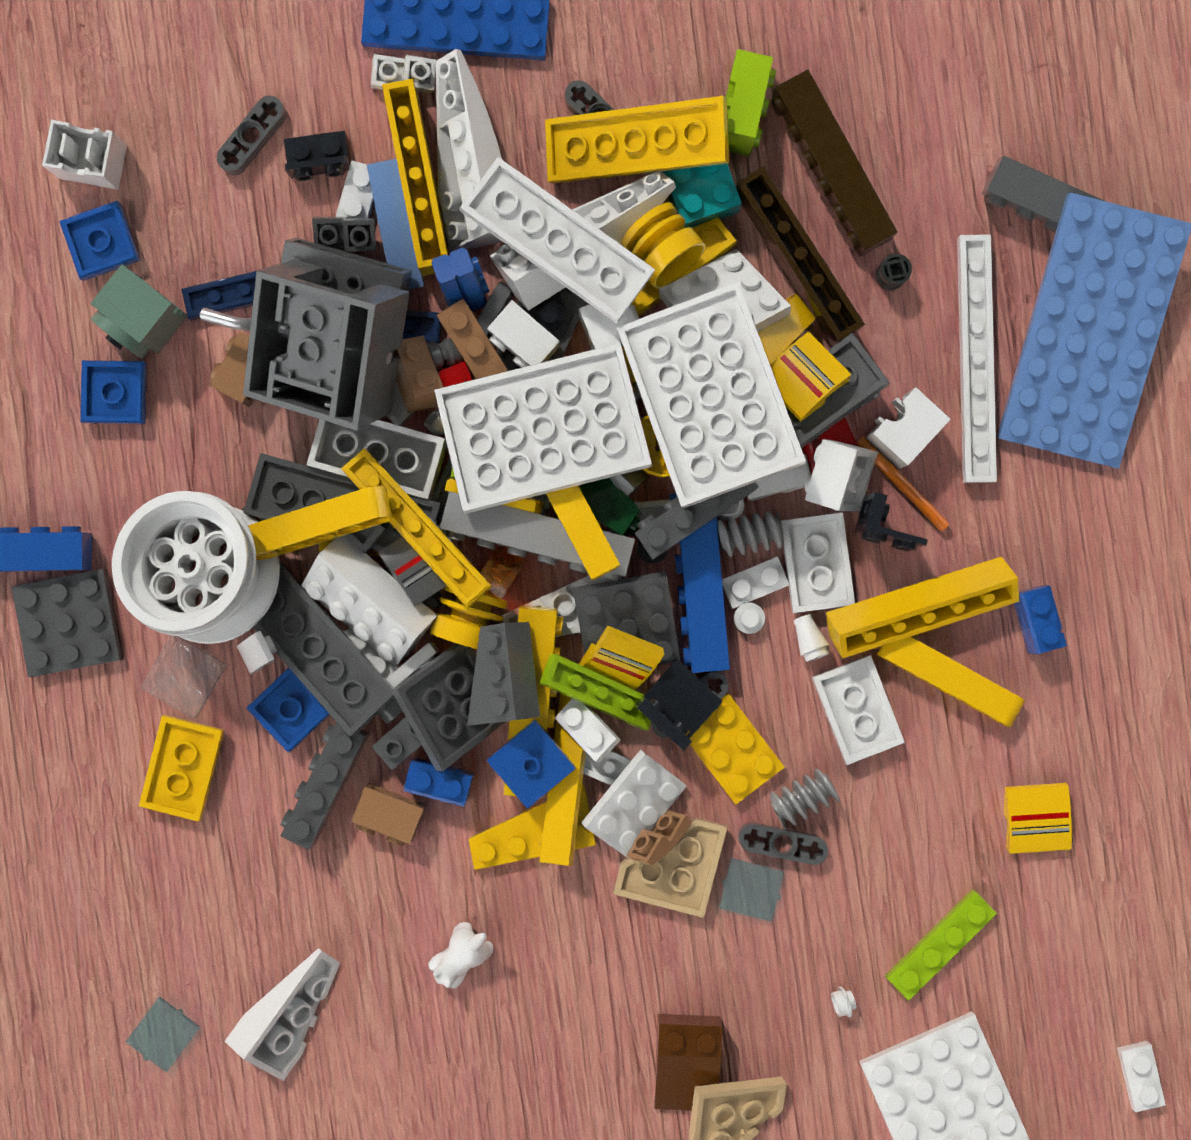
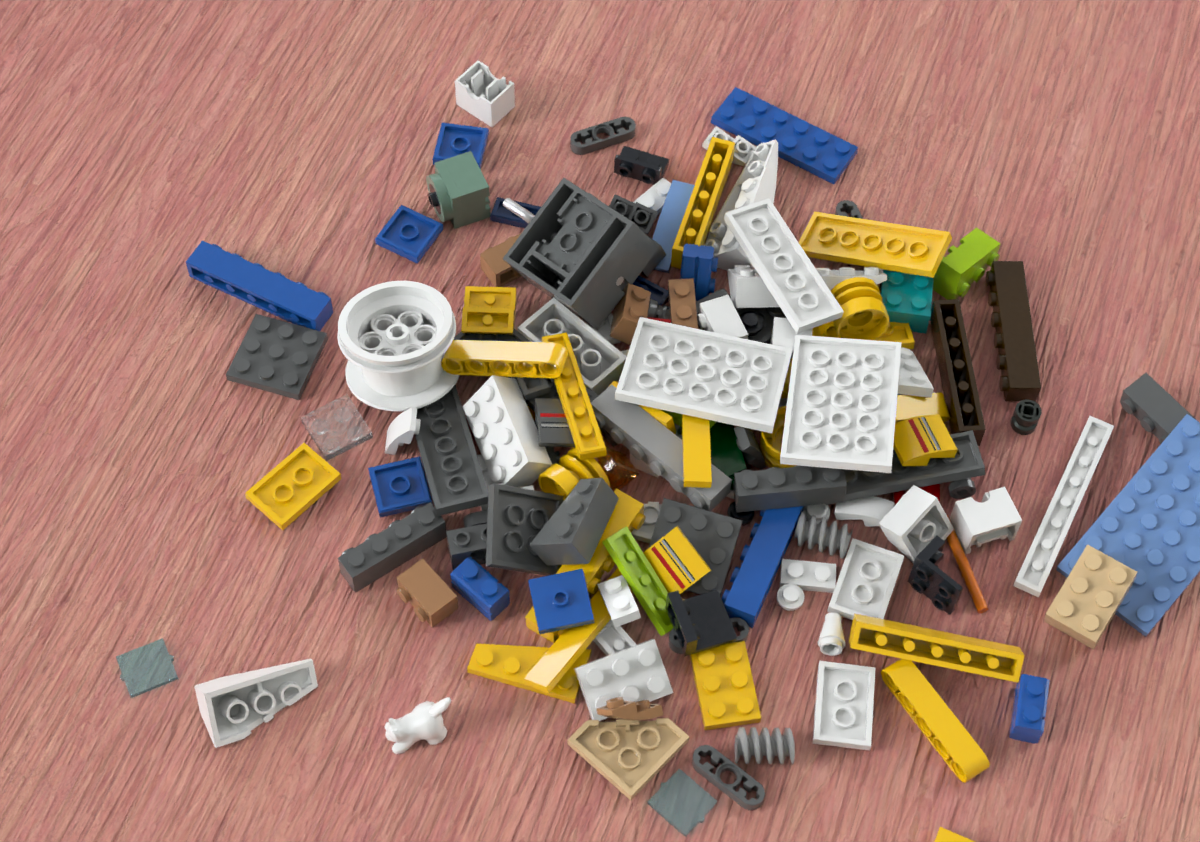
camera: 25 degrees right, 30 degrees down
(263, 460) = (489, 310): none -> yellow slope
(1052, 466) = (1090, 596): none -> tan brick

